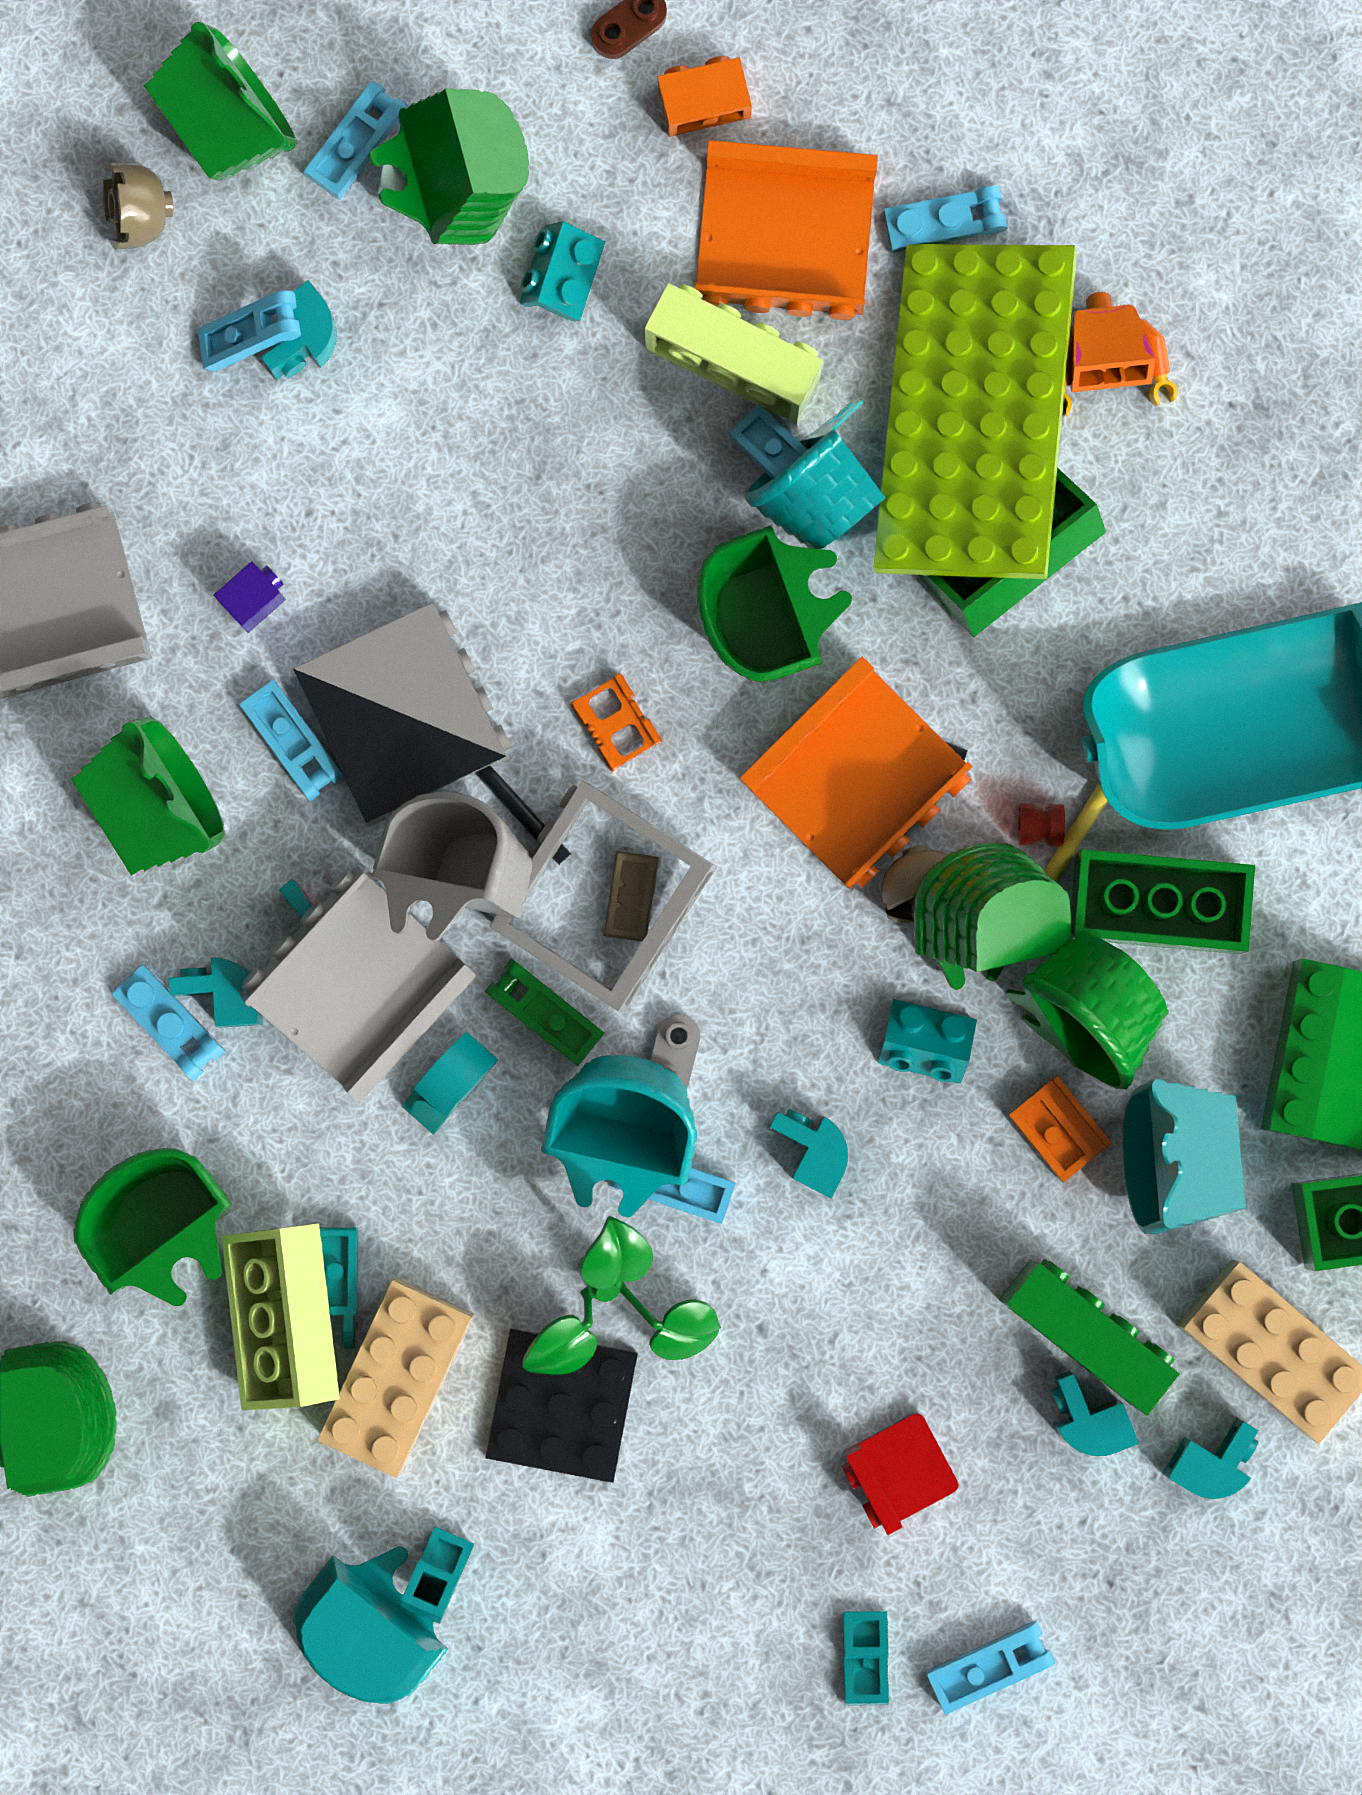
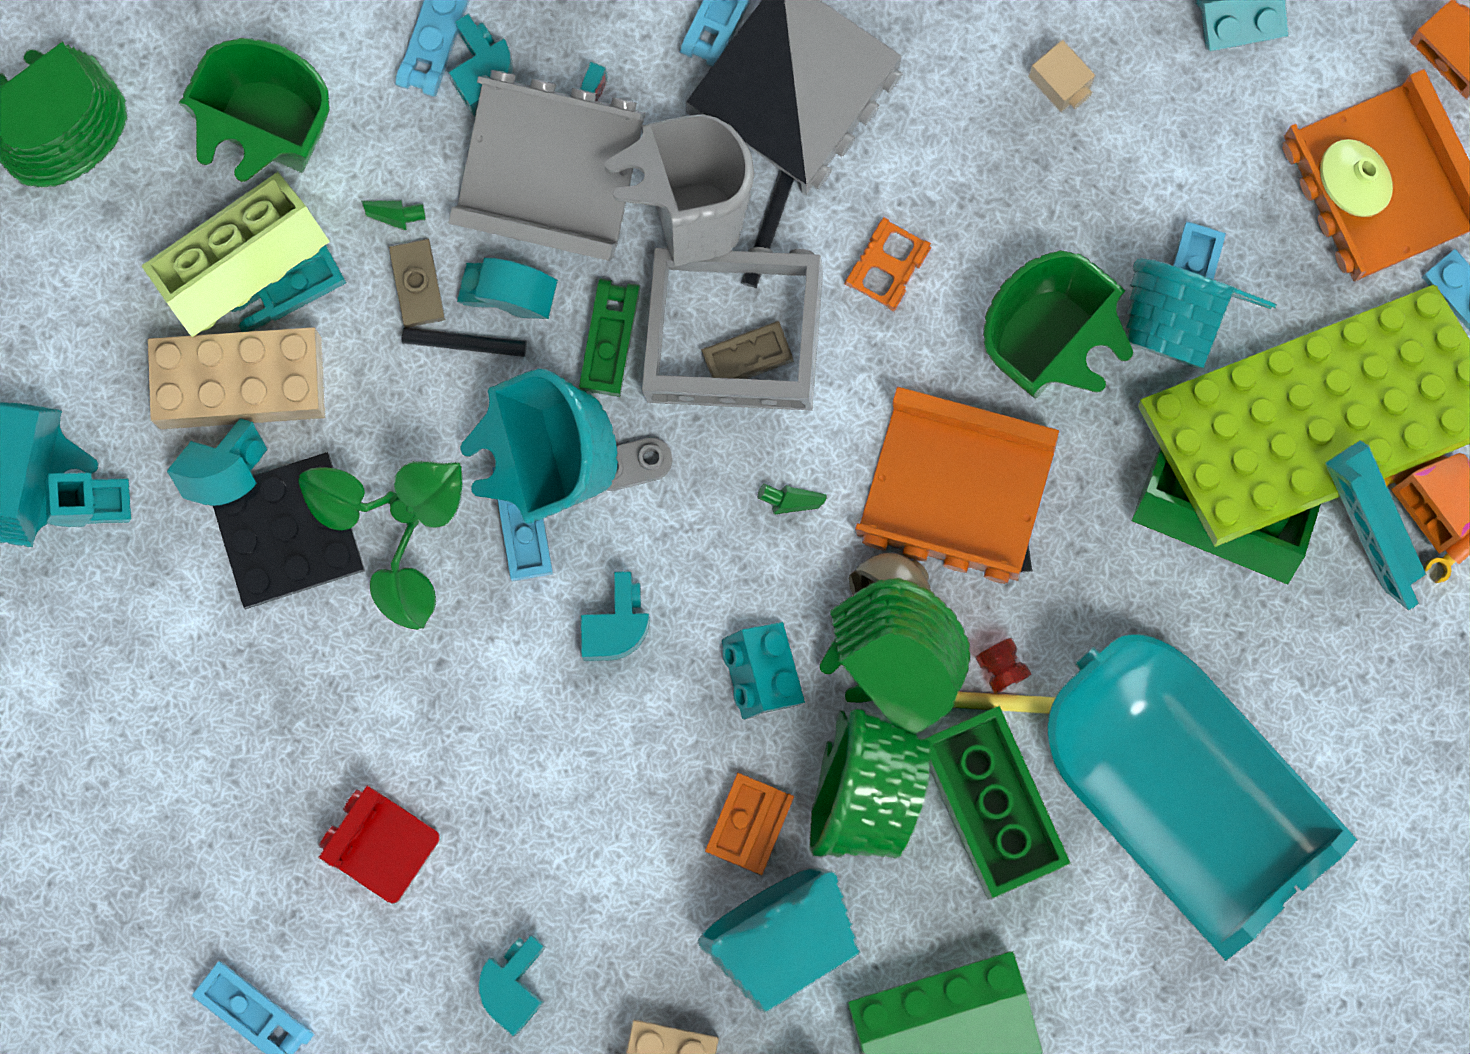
camera: 60 degrees right, 5 degrees down
(315, 1148) = (394, 213): none -> green bar
(395, 1162) = (417, 283): none -> dark tan plate
(474, 1148) = (464, 342): none -> black bar
(480, 1437) = (219, 473): none -> teal brick
(532, 466) = (1062, 77): none -> tan brick
(733, 352) = (1256, 185): yellowish green brick -> none
(773, 258) = (1356, 178): none -> yellowish green dish
(784, 930) = (790, 499): none -> green bar
(865, 1658) = (205, 903): teal slope -> none
(1088, 1336) = (582, 941): green brick -> none
(1100, 423) = (1377, 522): none -> teal fence

